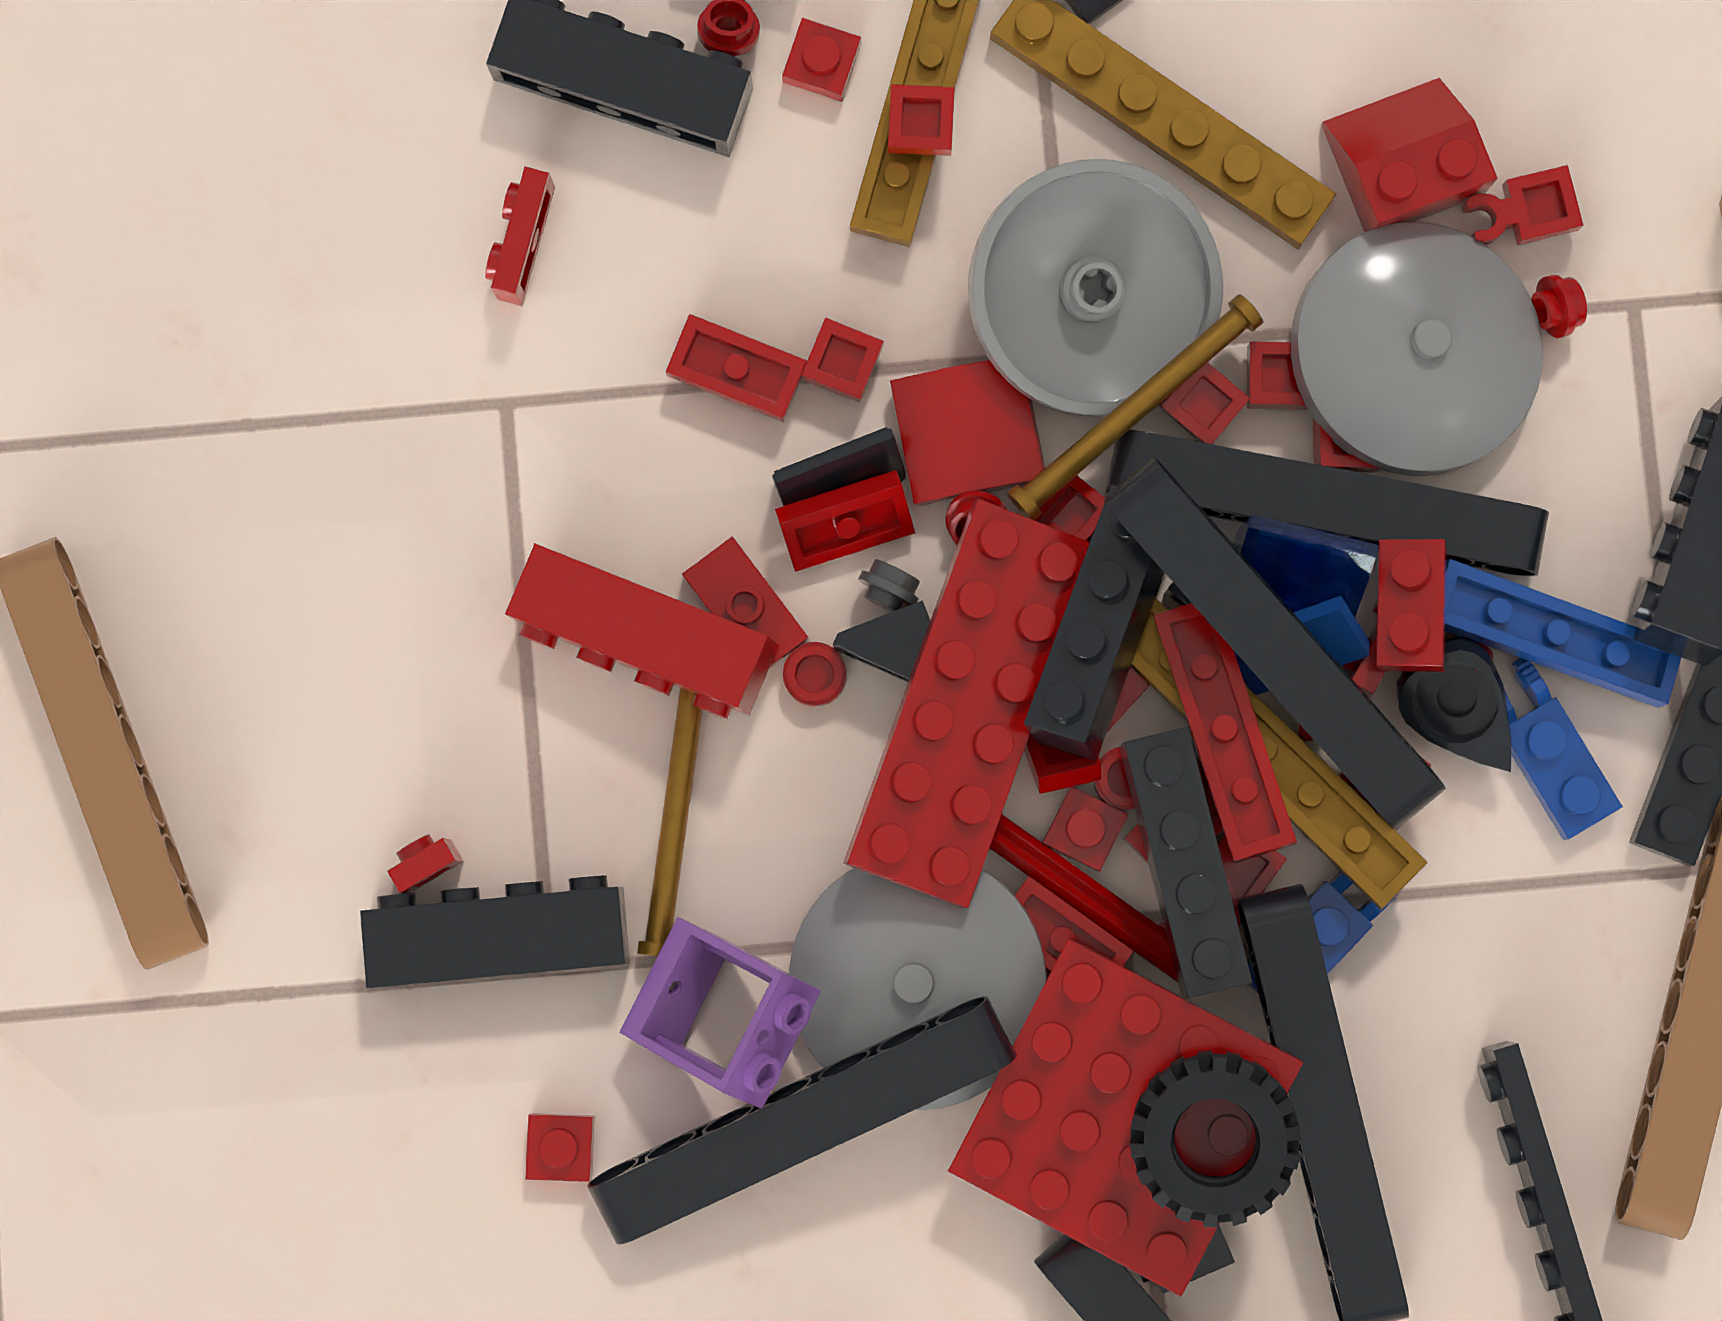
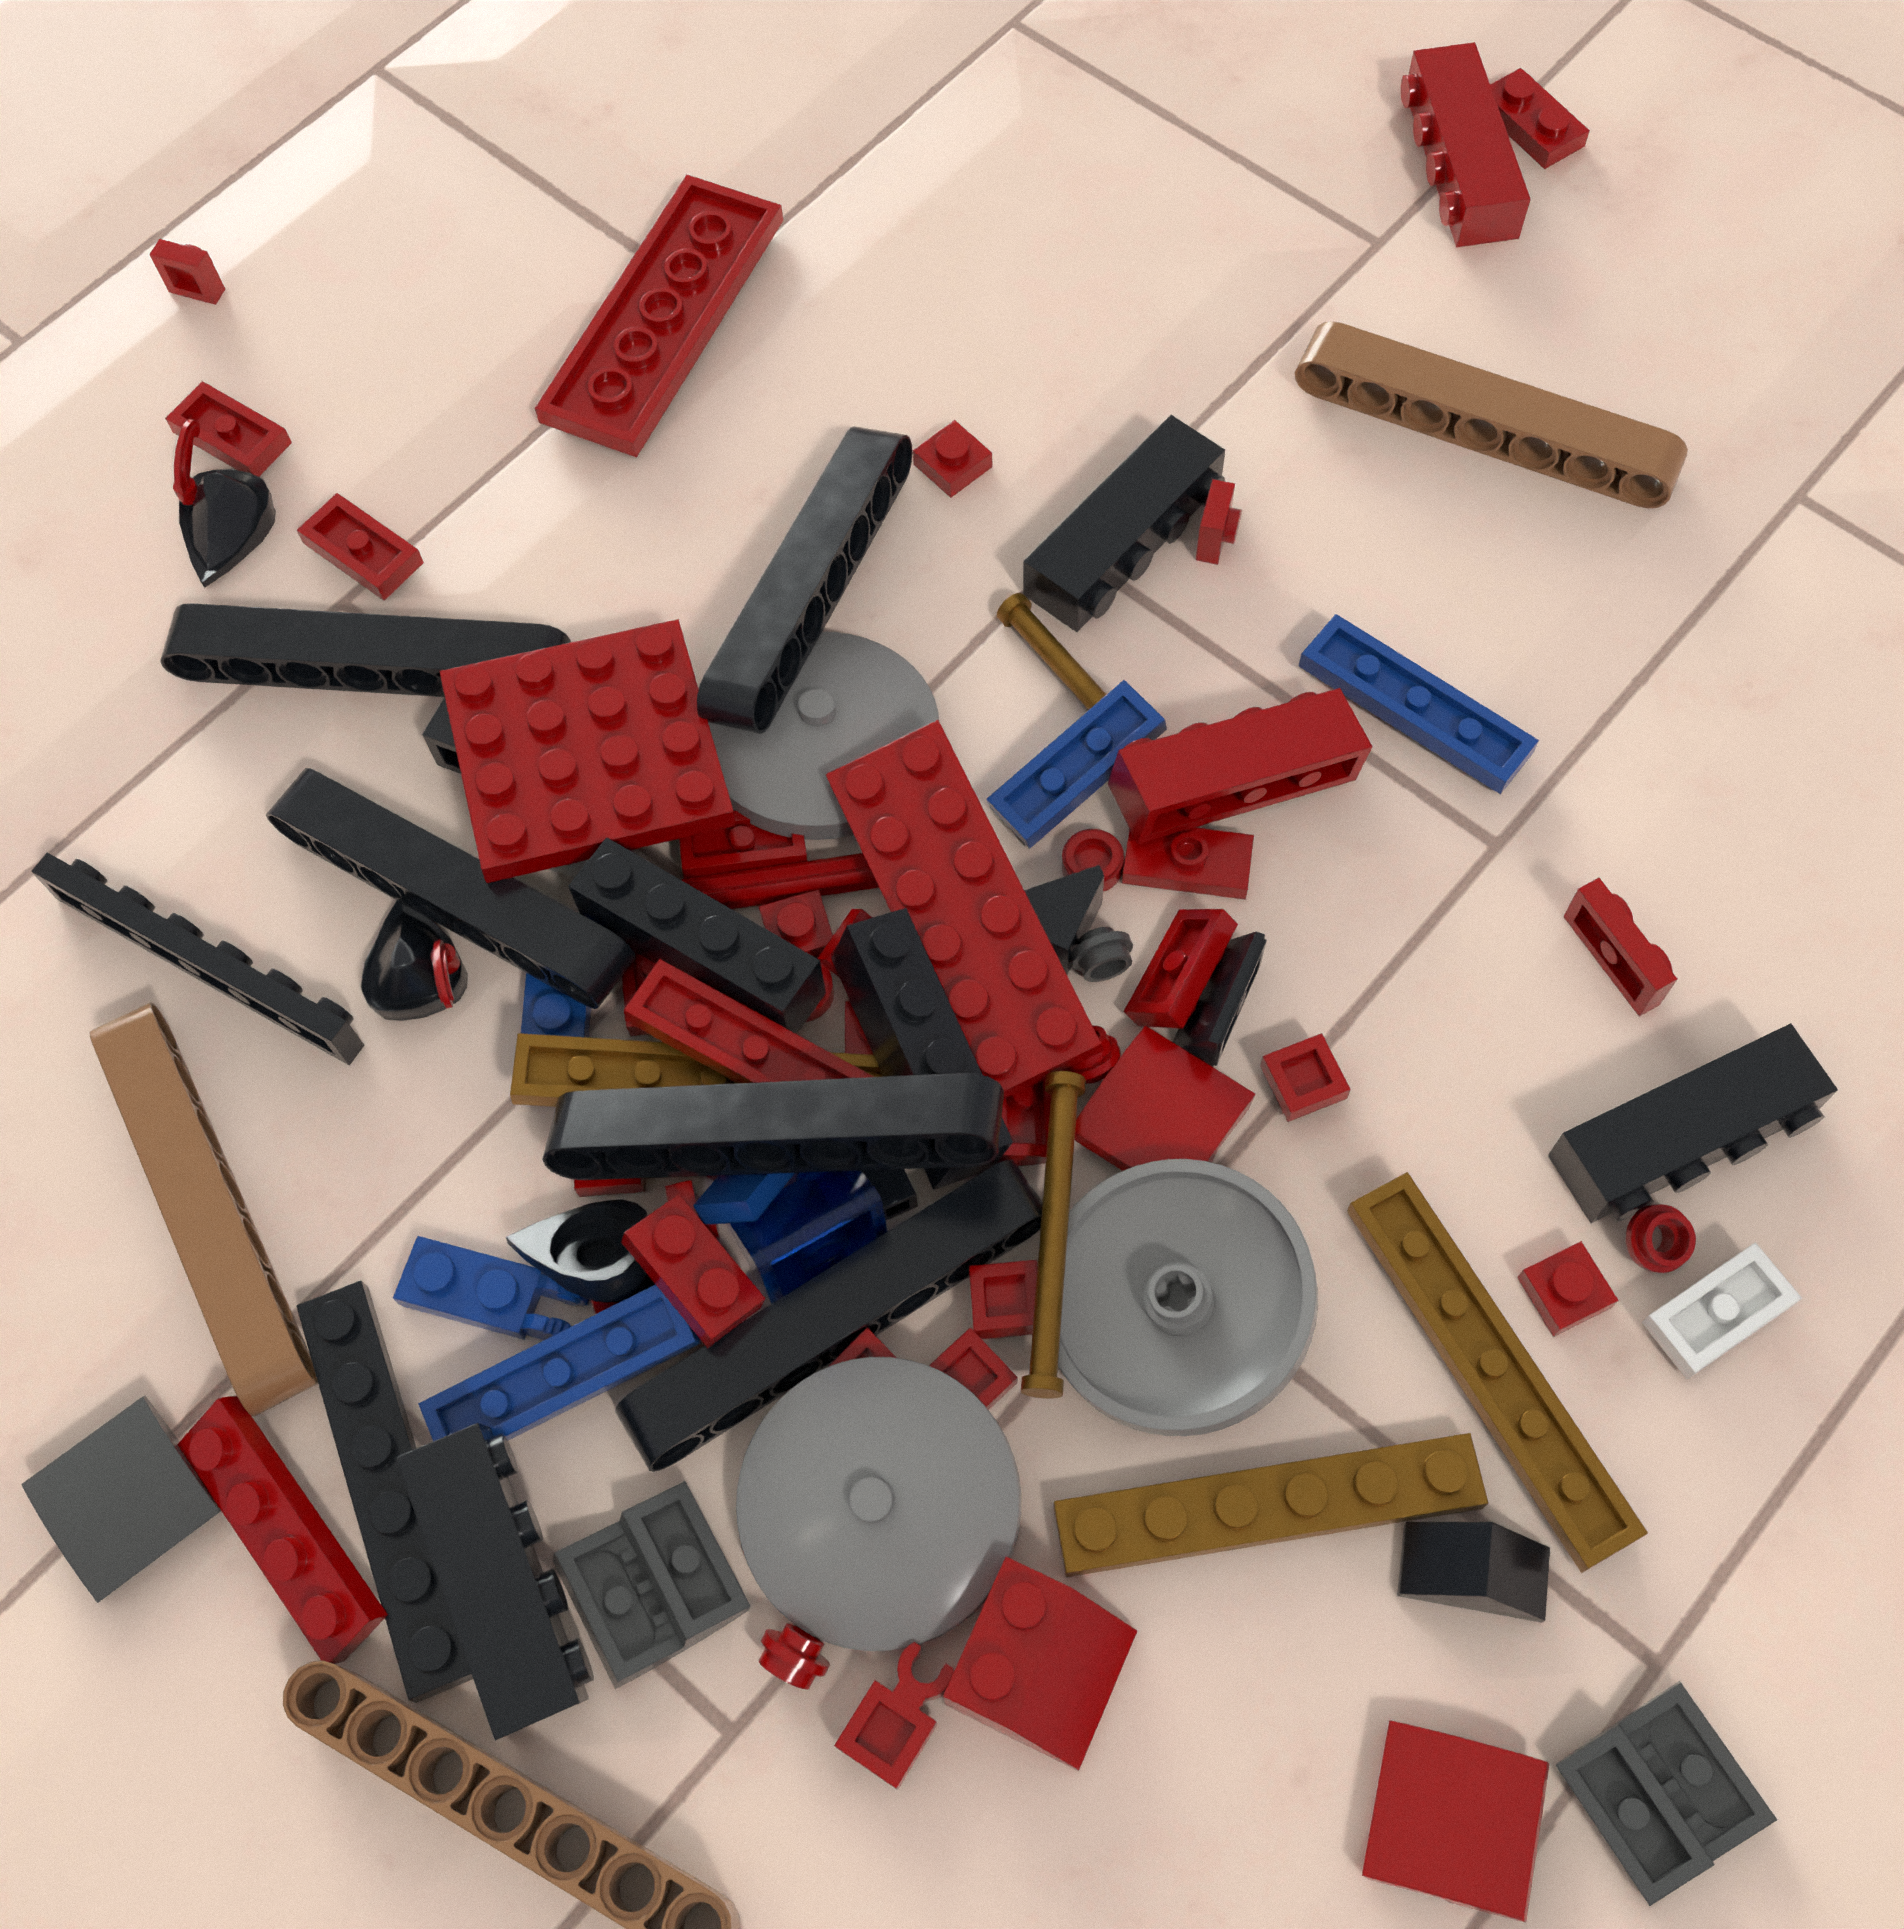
camera: 135 degrees right, 20 degrees down
(445, 561) = (1418, 703): none -> blue plate
(664, 1017) = (973, 617): medium lavender window -> none
(736, 367) = (1373, 1000): red plate -> none
(755, 753) = (1074, 764): none -> blue plate
(921, 120) = (1444, 1290): red plate -> none
(1215, 1197) = (488, 707): black tyre -> none
(1400, 1070) = (412, 968): none -> black piece
(1608, 442) = (650, 1584): none -> dark grey slope

